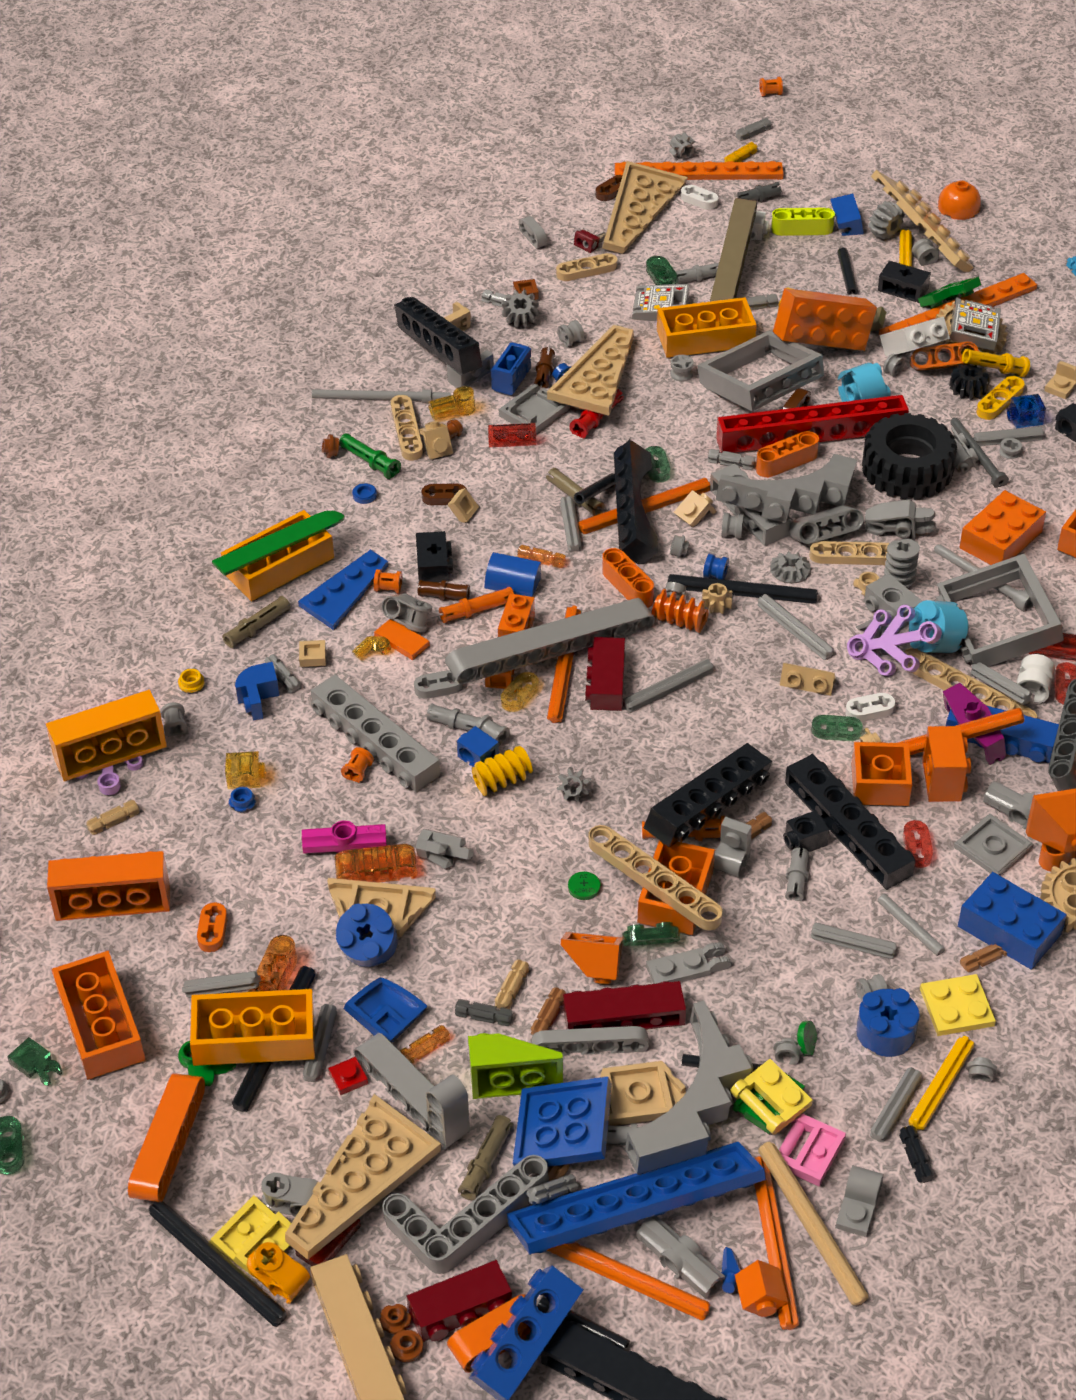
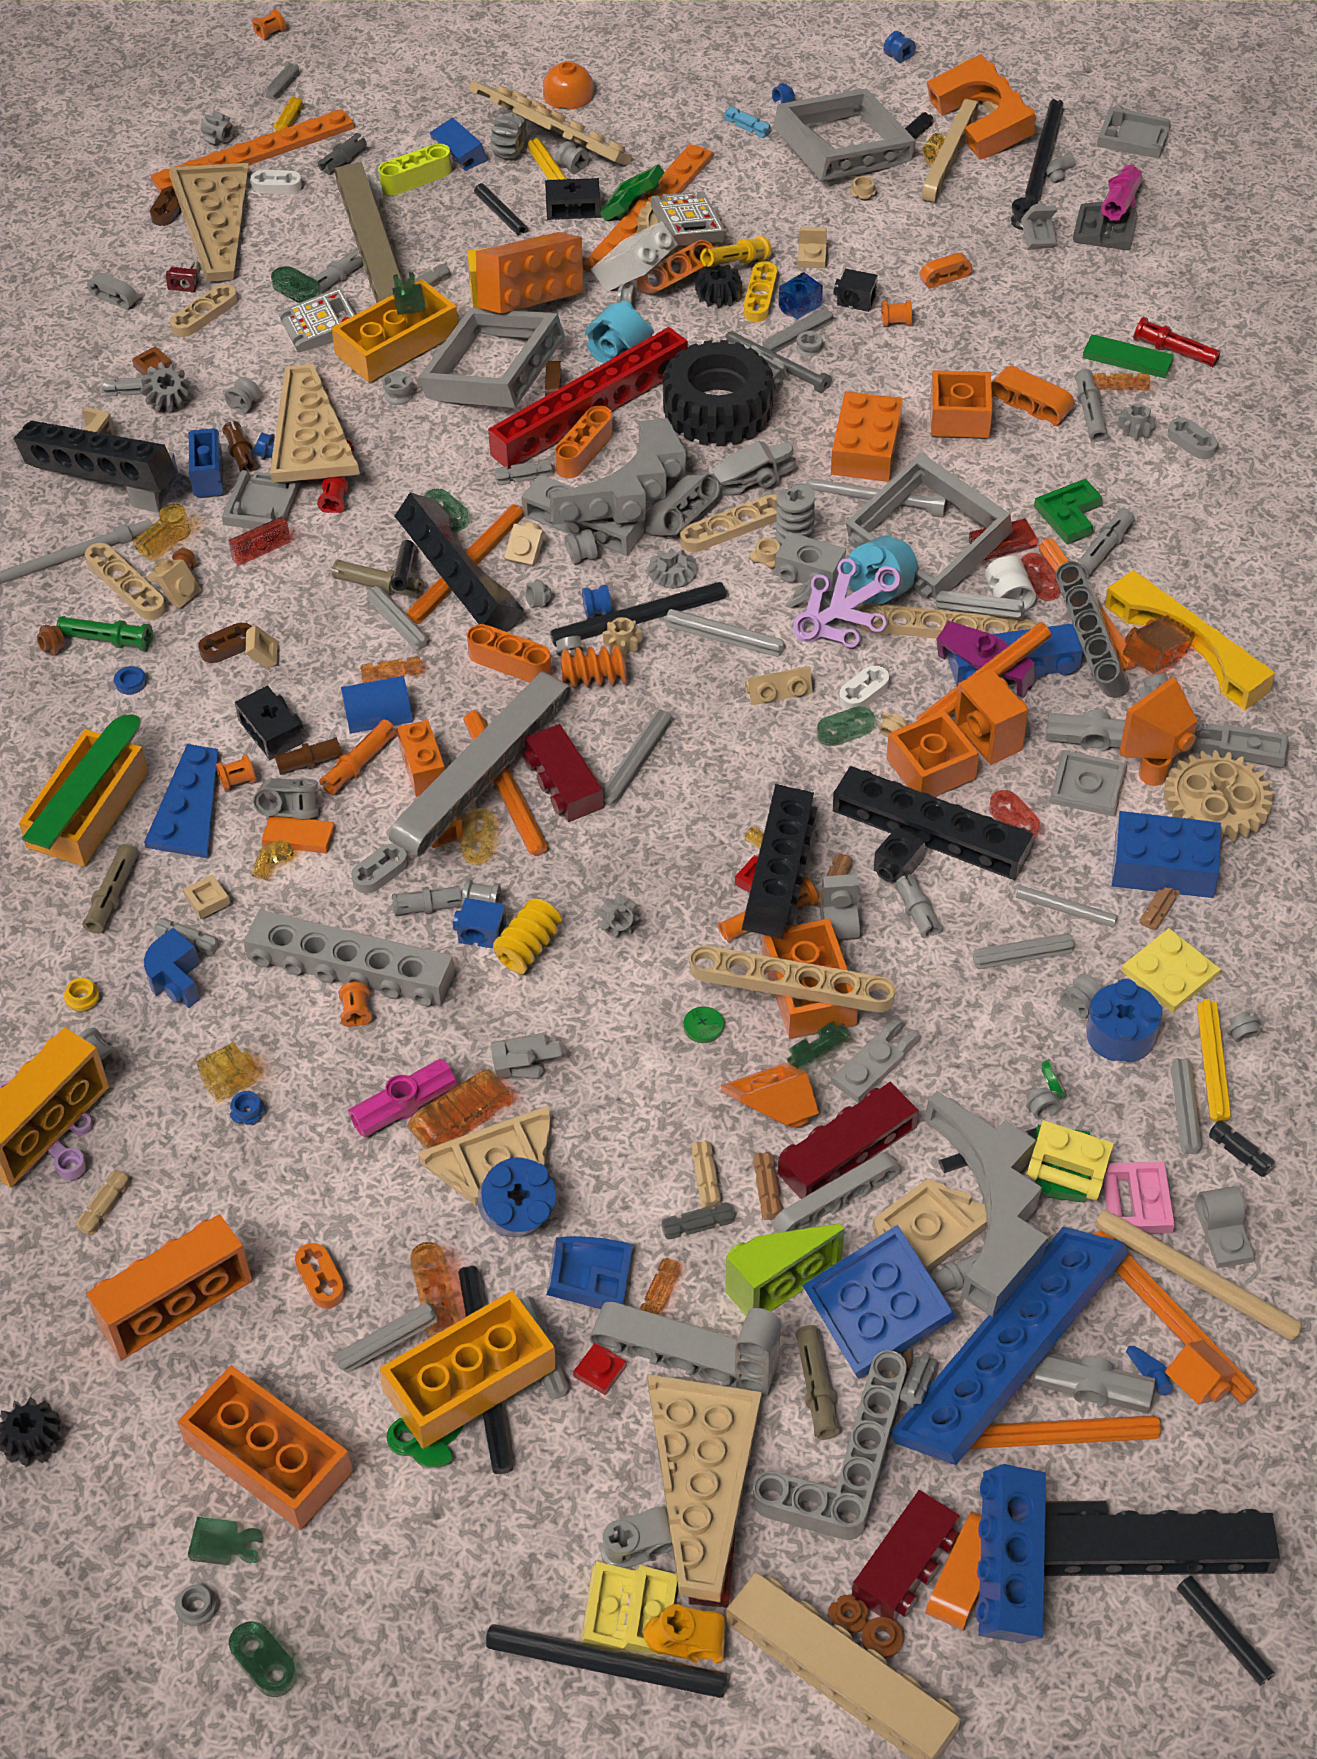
camera: 30 degrees left, 5 degrees up
(166, 1138) = (451, 1549): orange beam -> none
(723, 305) = (408, 295): none -> clear green plate

